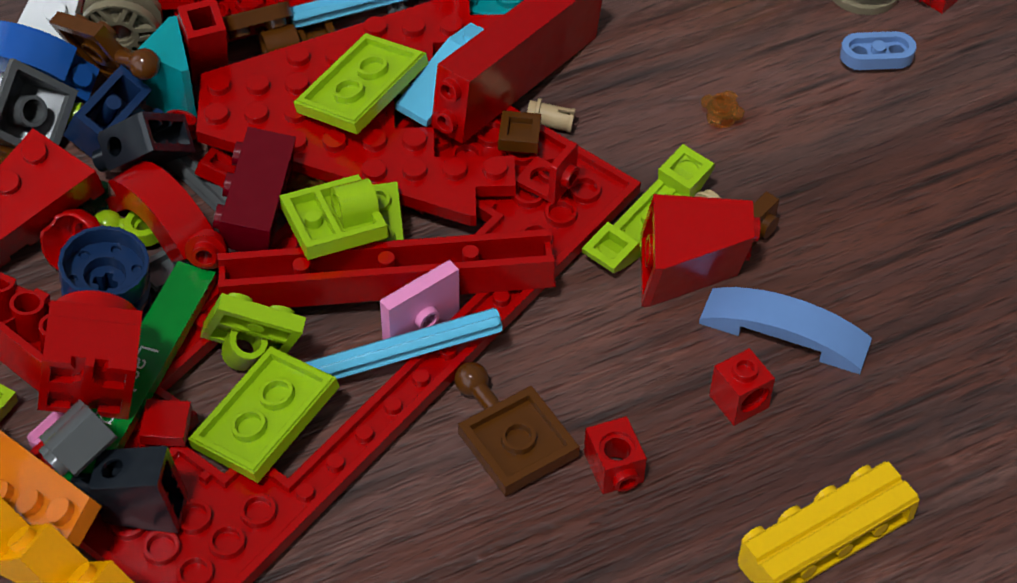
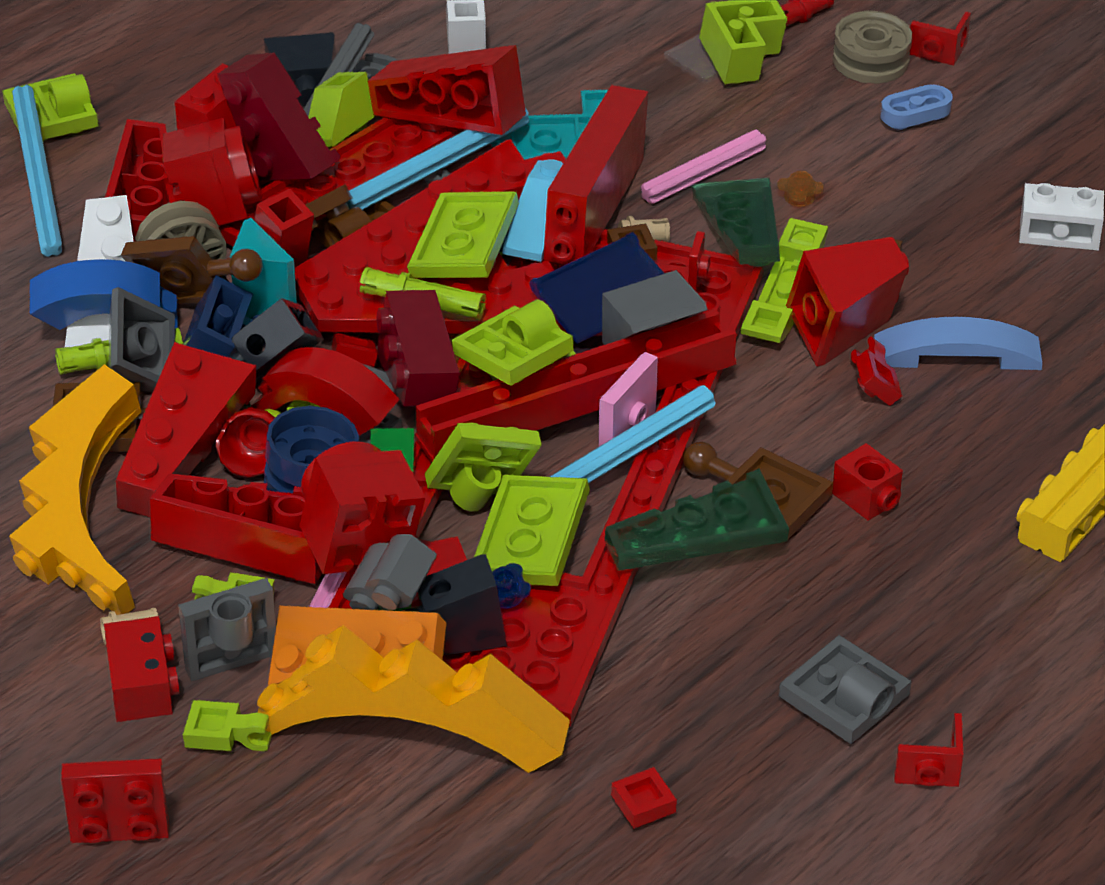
camera: 20 degrees left, 10 degrees down
(206, 479) = (511, 585): none -> clear blue plate
(208, 241) = (392, 400): red plate -> none
(306, 144) = (450, 298): none -> lime pin
(433, 461) = (715, 523): none -> clear green wing
(463, 174) = (577, 288): none -> clear blue piece
(485, 208) = (648, 306): none -> dark grey slope
(643, 61) = (703, 166): none -> bright pink axle
(646, 129) = (742, 218): none -> clear green wing
(685, 333) = (875, 374): none -> red plate
(741, 386) = (949, 399): red brick -> none
(958, 211) = (1061, 216): none -> white brick

